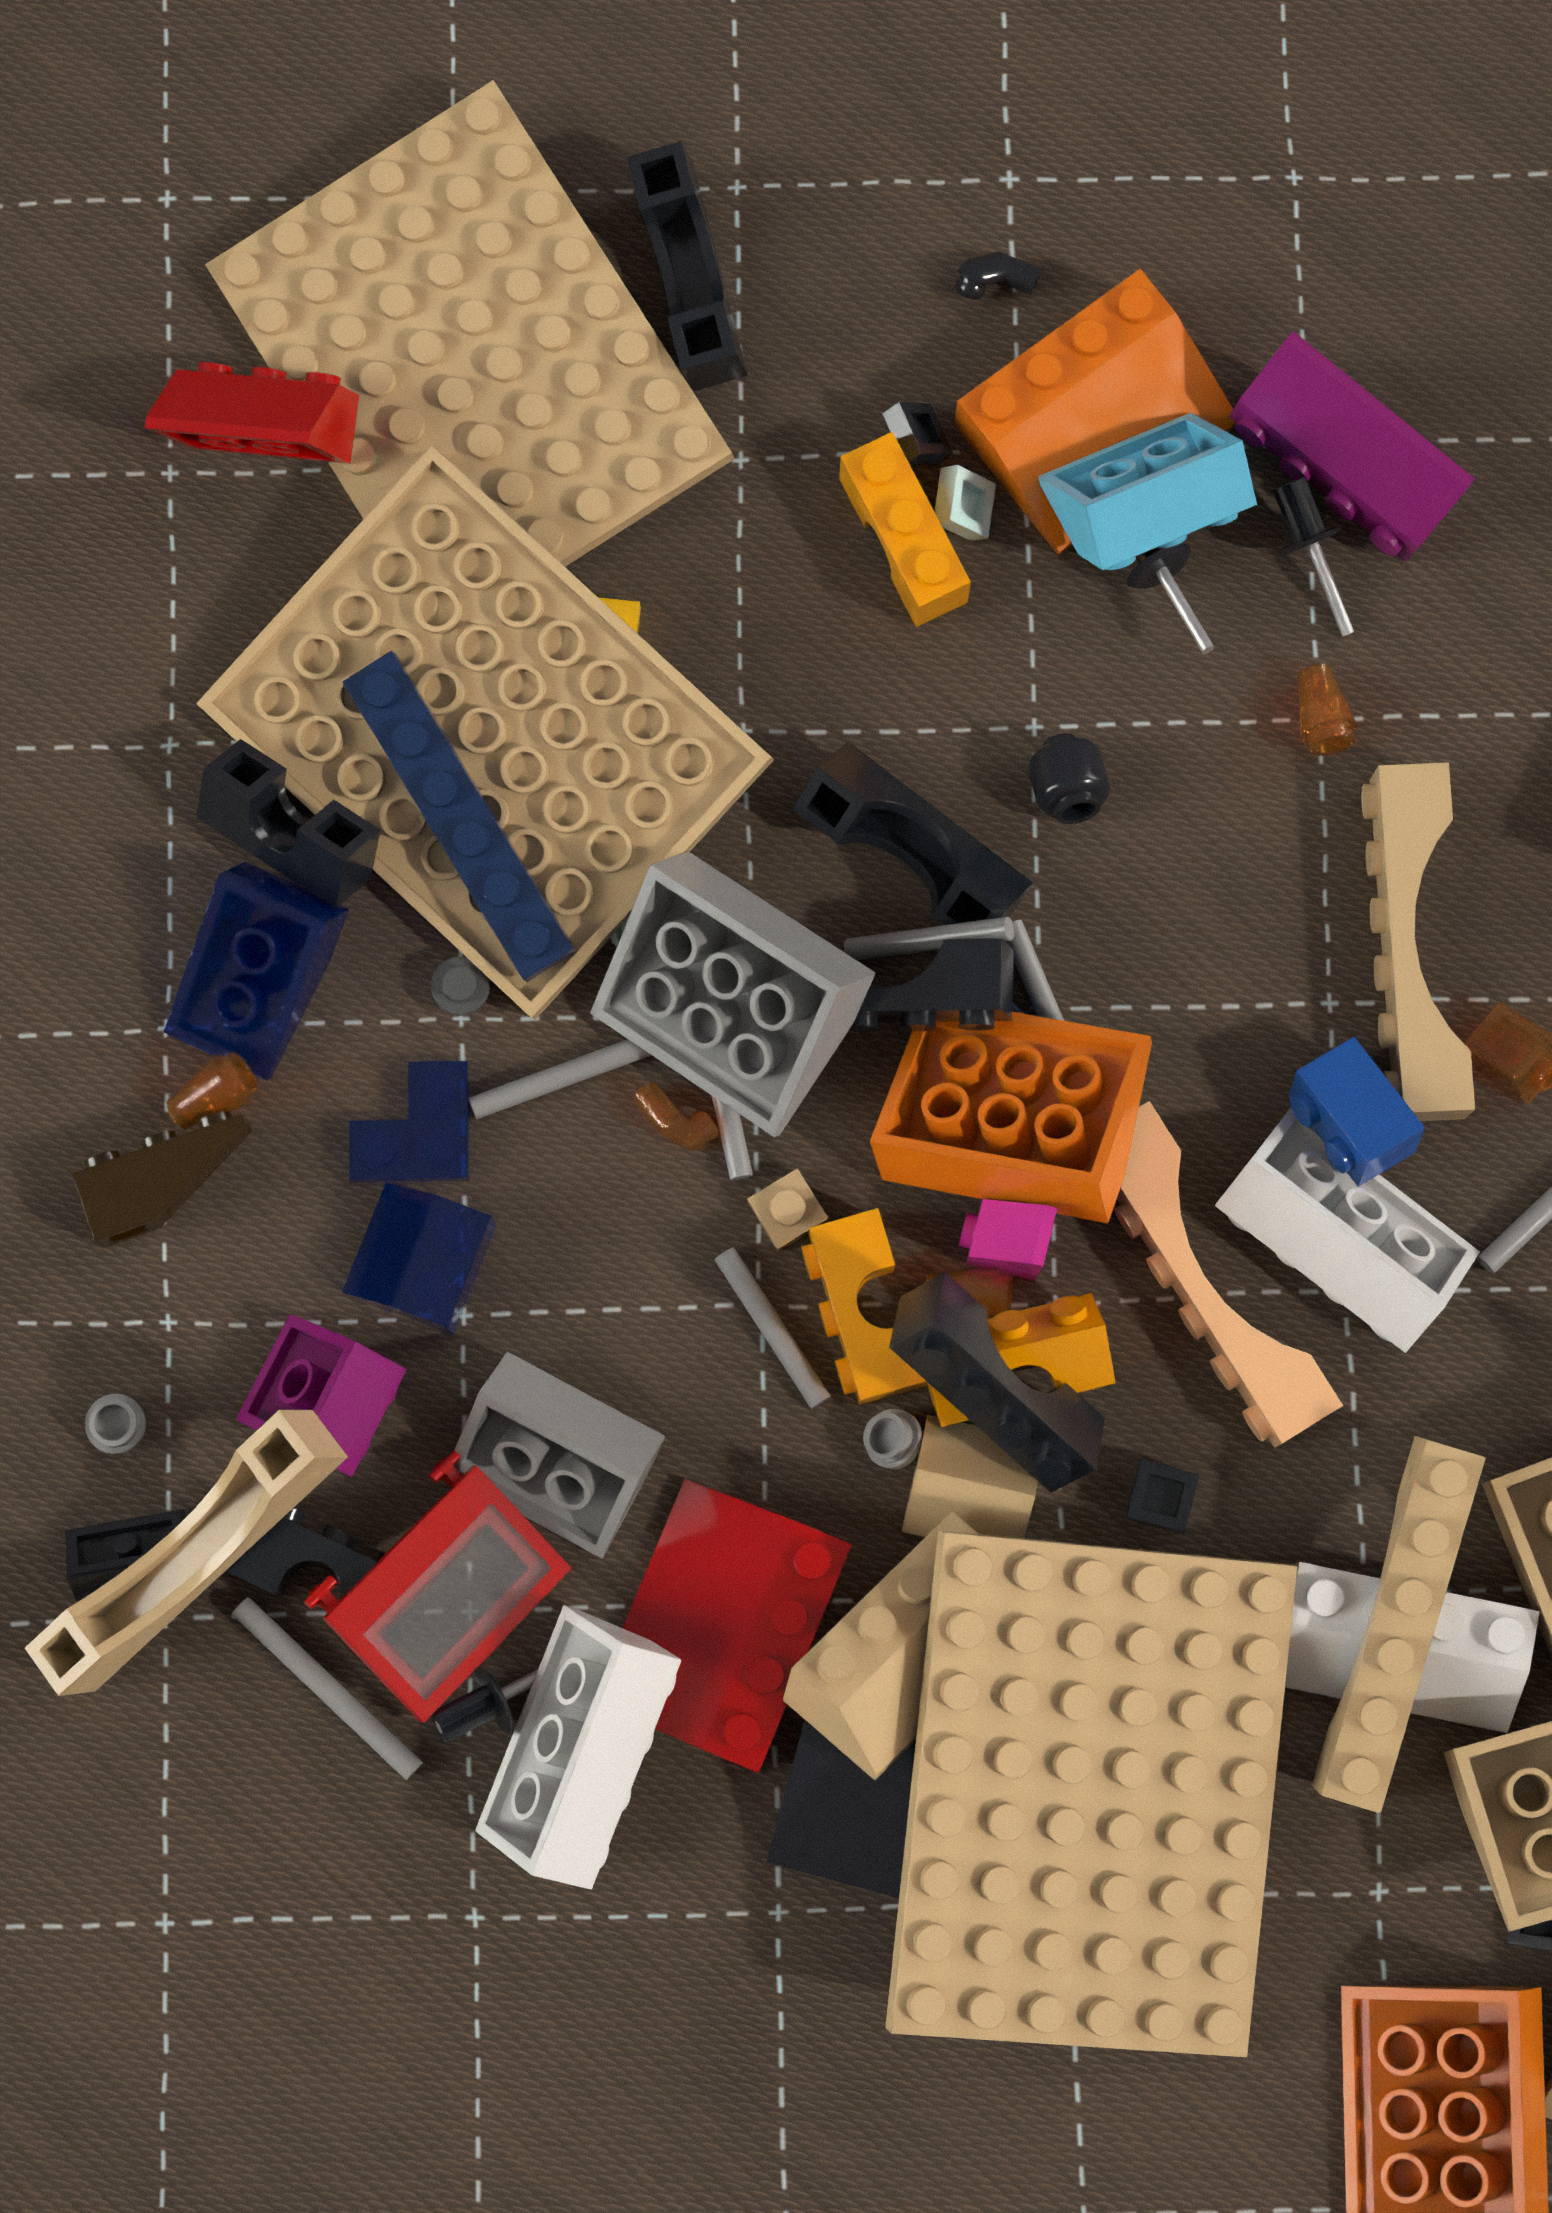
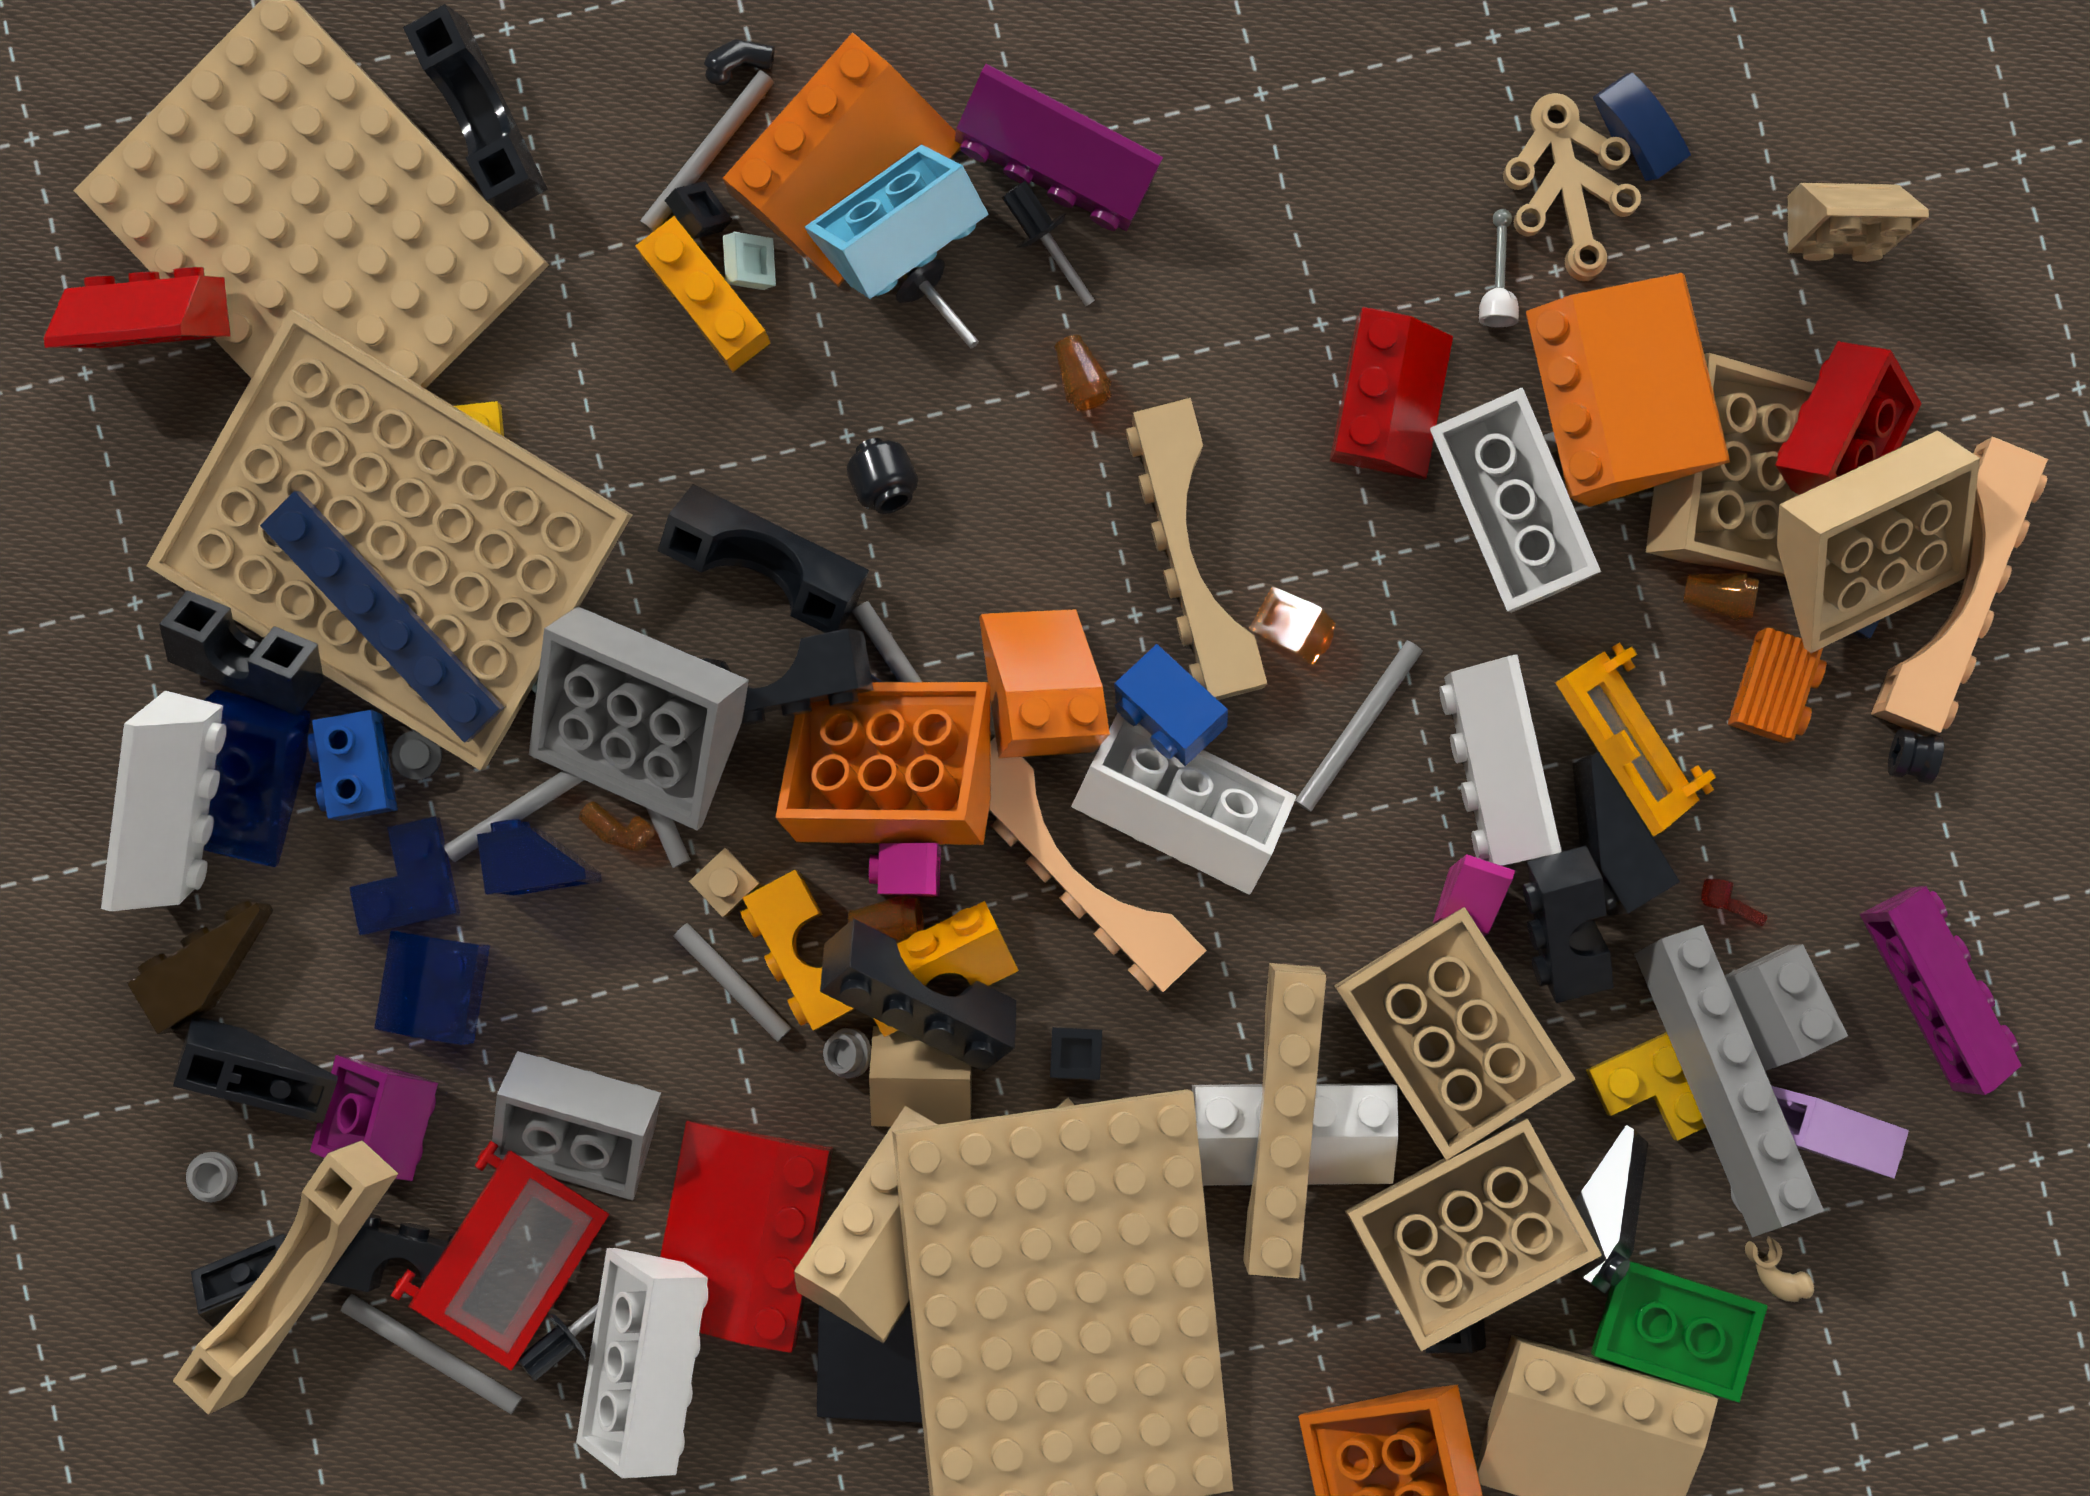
camera: 10 degrees left, 5 degrees up
(165, 973) = (163, 803): none -> white slope
(193, 1309) = (251, 1071): none -> black slope
(219, 1086) = (234, 882): clear orange cone -> none
(384, 982) = (352, 765): none -> blue brick
(571, 1134) = (528, 861): none -> clear blue slope
(926, 938) = (790, 636): light grey bar -> none
(943, 367) = (710, 147): none -> light grey bar
(1211, 1057) = (1042, 684): none -> orange slope

